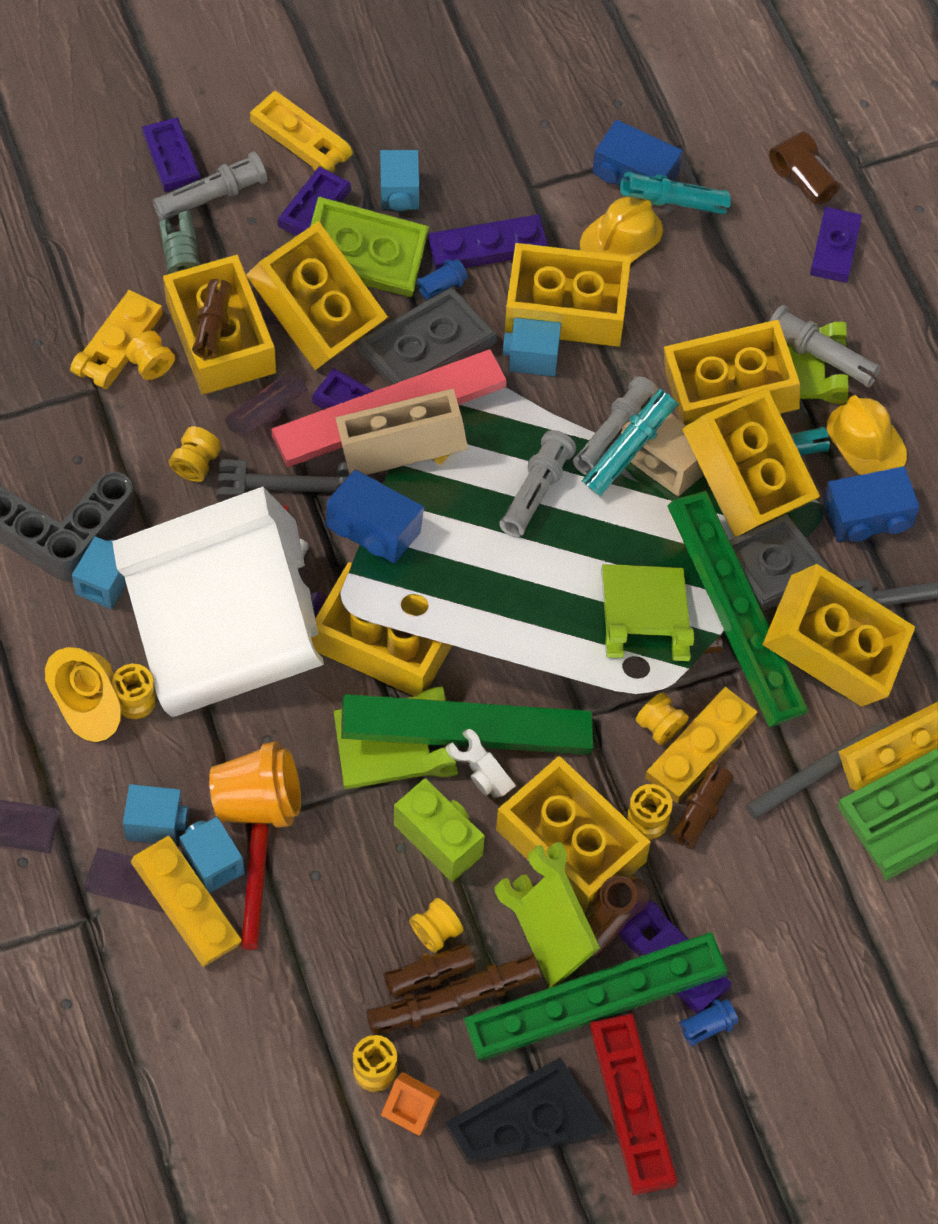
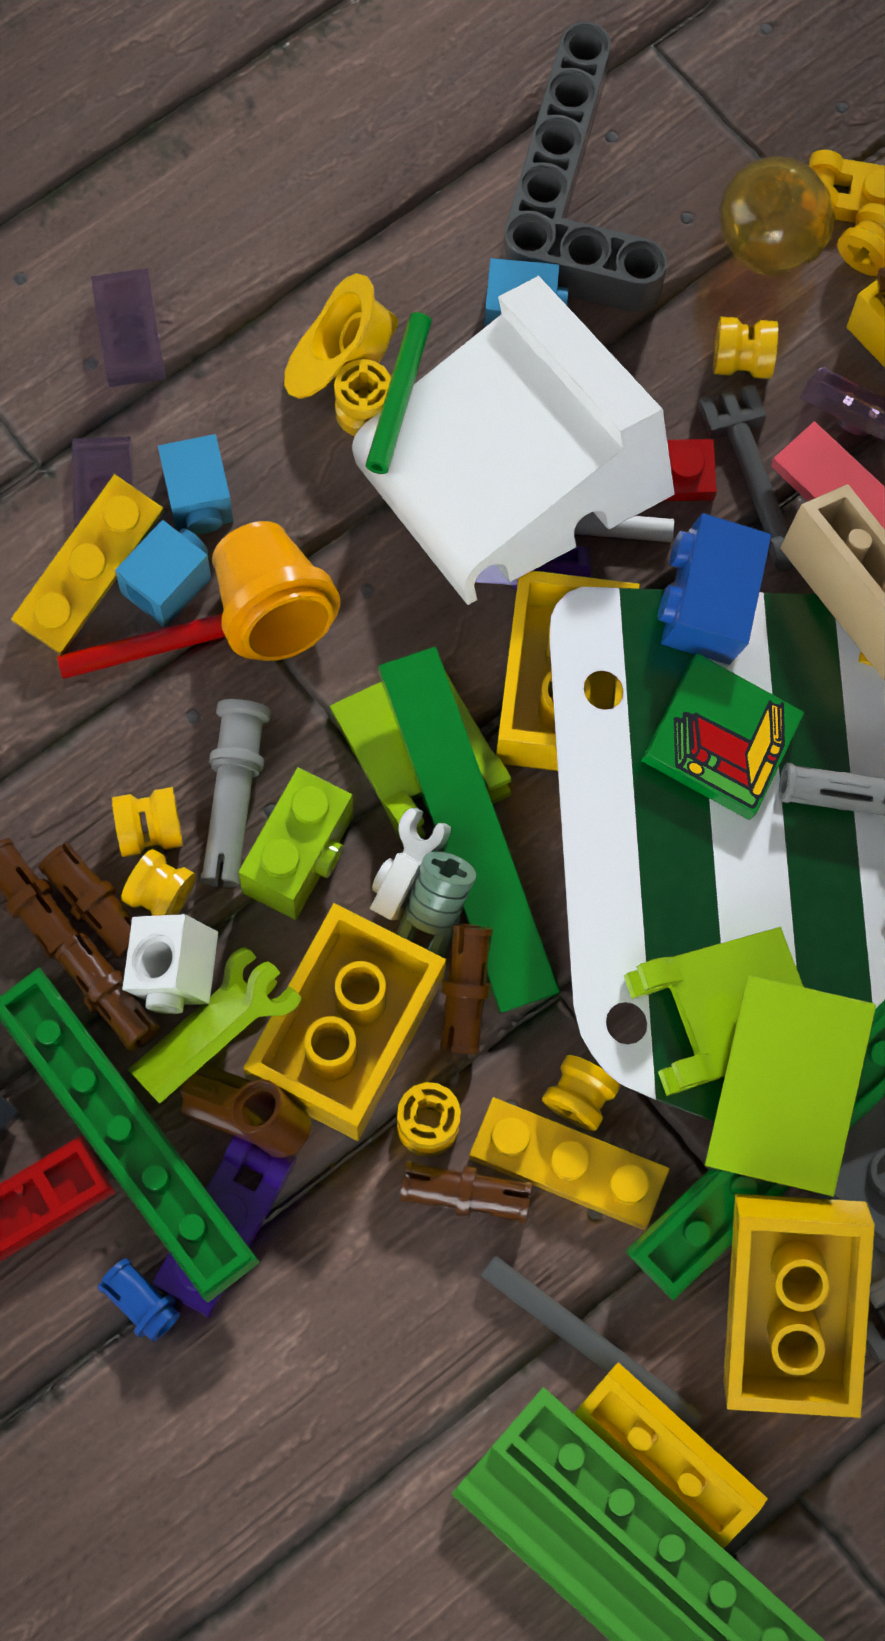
camera: 70 degrees right, 10 degrees up
(109, 402) = (776, 215): none -> clear yellow cylinder
(149, 660) = (398, 393): none -> green piece
(366, 852) = (236, 764): none -> light grey pin
(387, 918) = (161, 821): none -> yellow wheel
(470, 550) = (723, 736): none -> tile
(474, 931) = (170, 962): none -> white brick
(512, 753) = (437, 899): none -> sand green hinge
(575, 757) = (466, 988): none -> reddish brown pin
(710, 586) = (790, 1085): none -> lime tile

